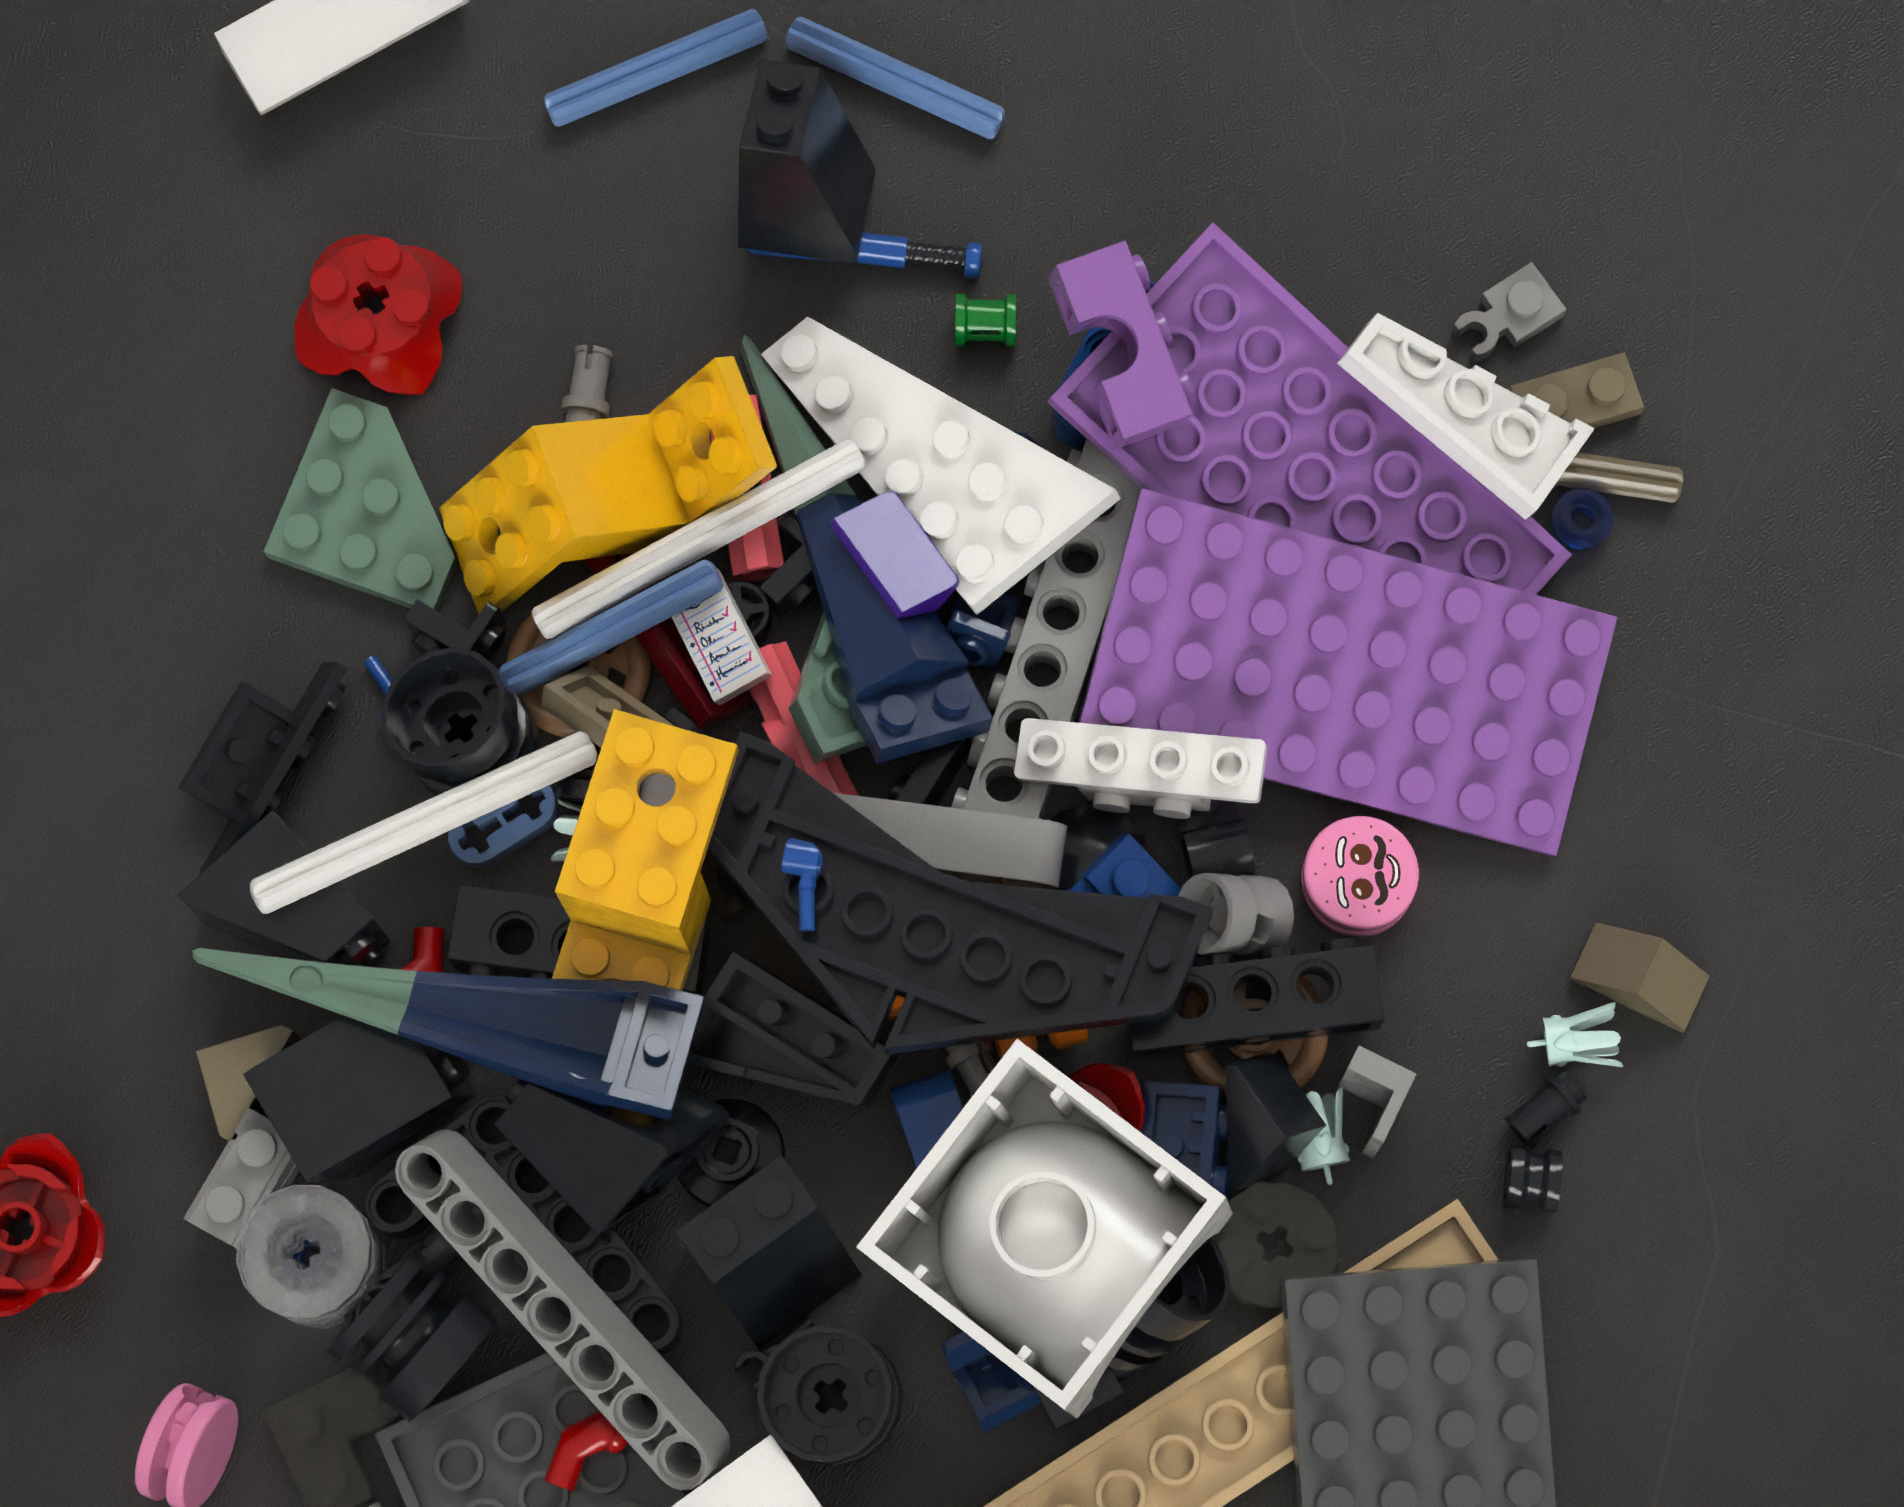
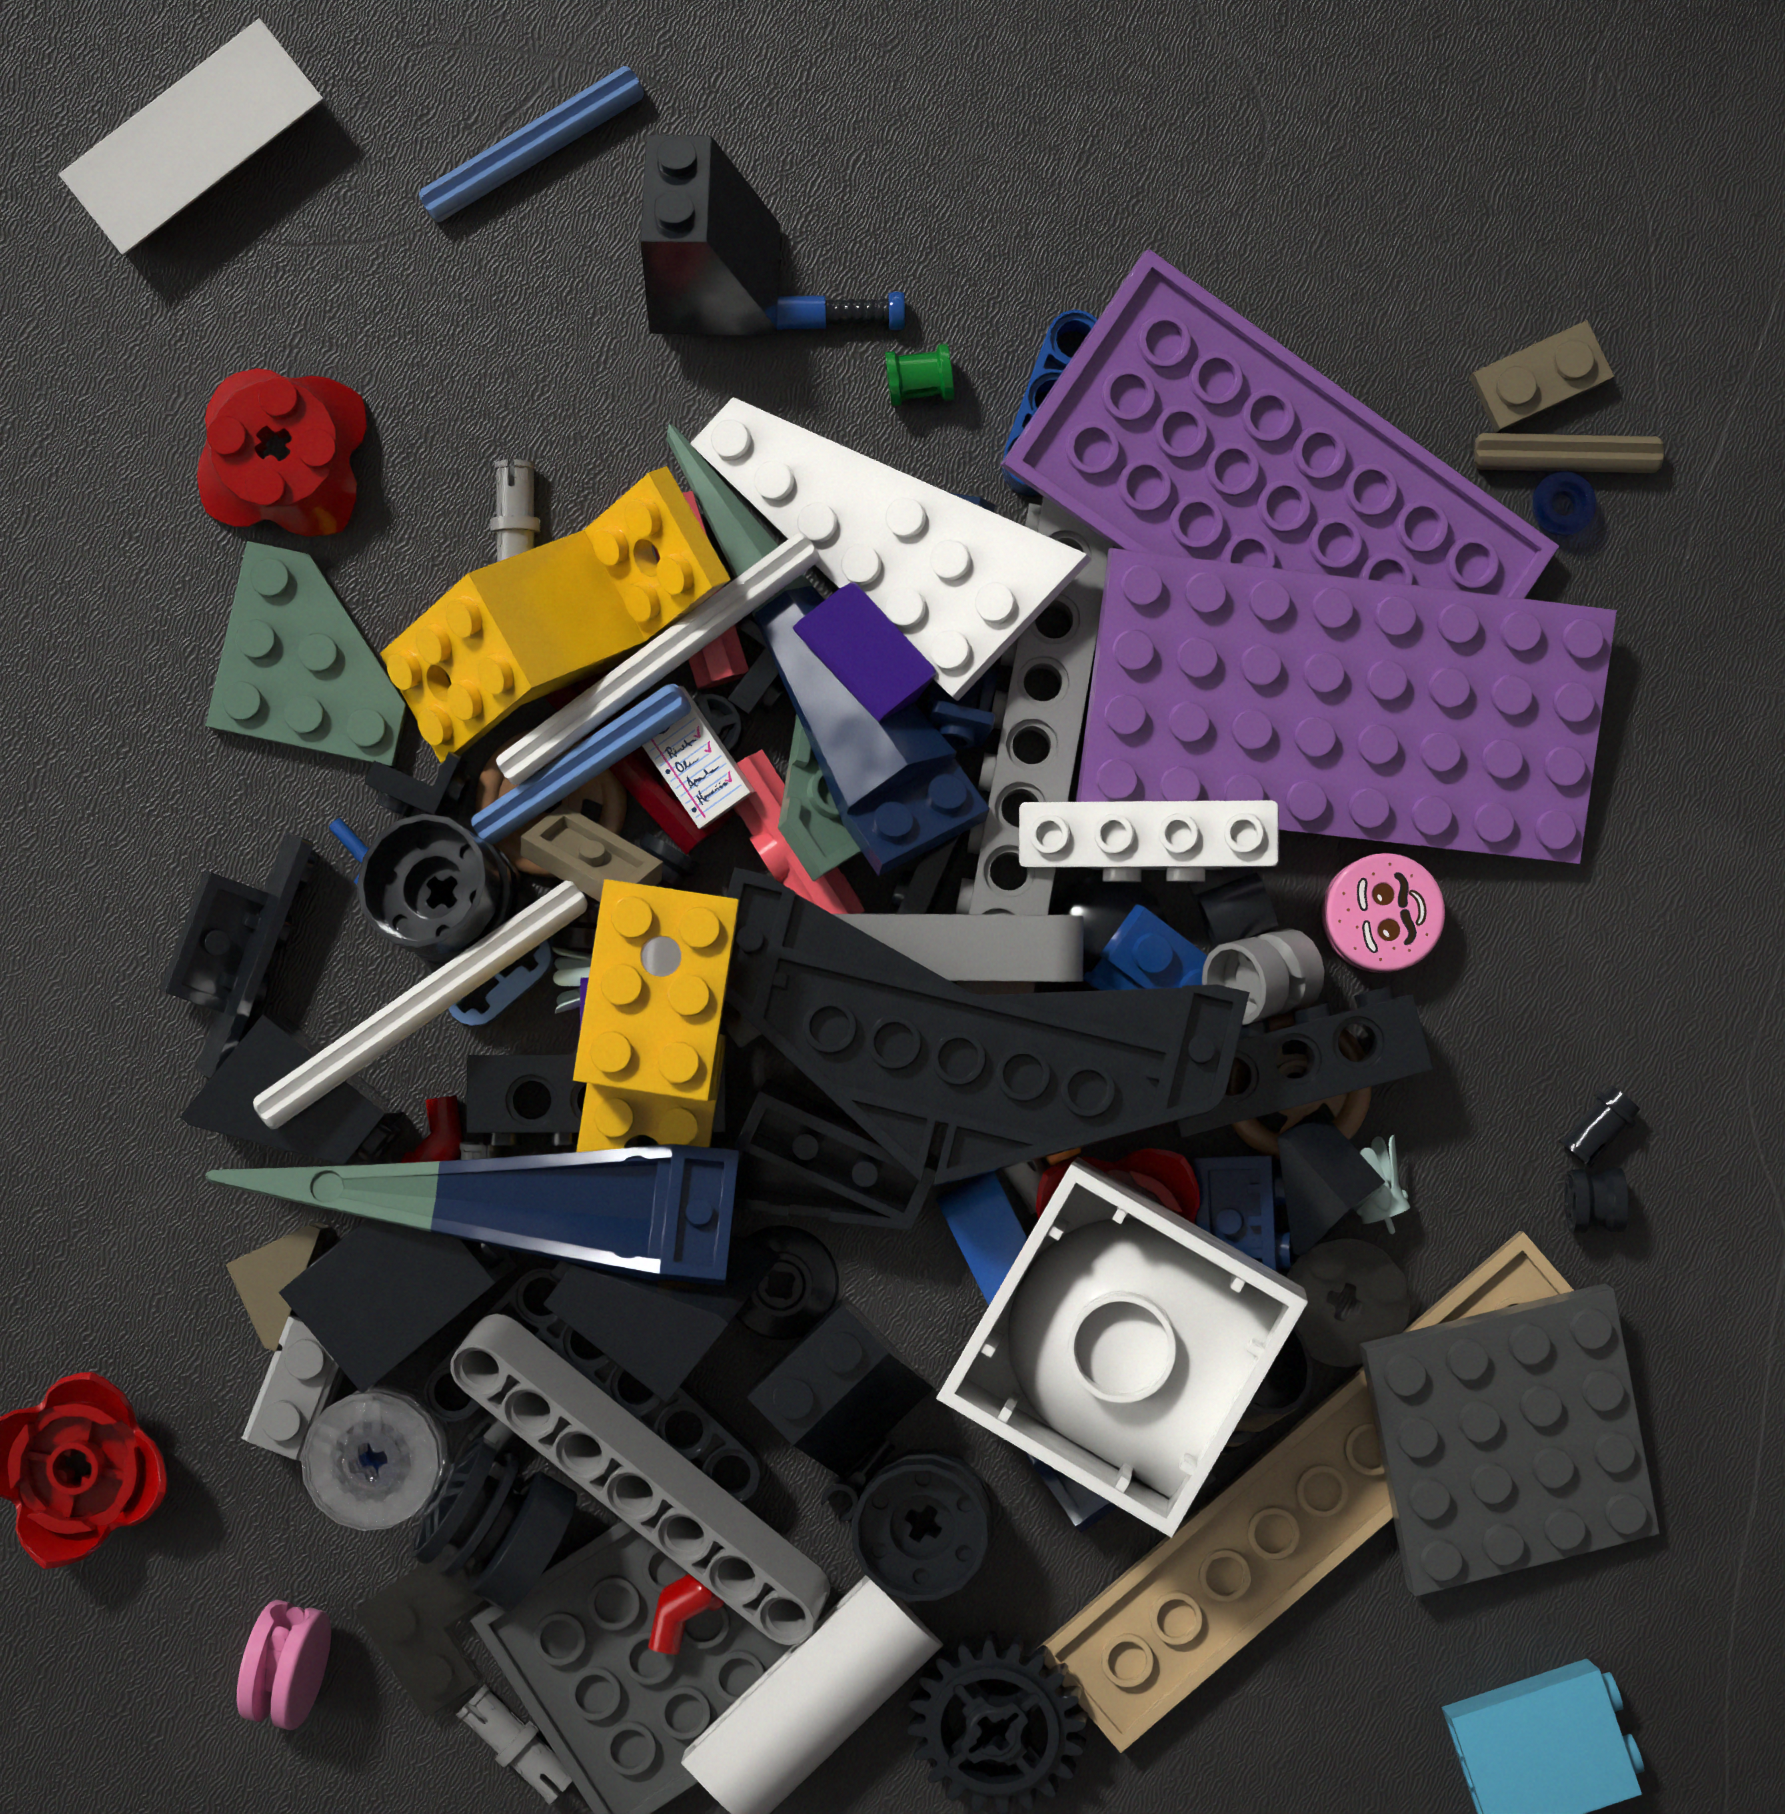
camera: 10 degrees left, 10 degrees up
(806, 861) = (824, 1001): blue hand -> none
(895, 77) = (785, 121): medium blue axle -> none
(1109, 293) = (1108, 443): medium lavender arch -> none
(1380, 1084) = (1450, 1146): light grey panel -> none
(1484, 428) = (1458, 428): white wing -> none
(1515, 308) = (1466, 287): light grey plate -> none
(1568, 1043) = (1609, 1059): light aqua piece -> none
(1641, 974) = (1677, 973): dark tan slope -> none

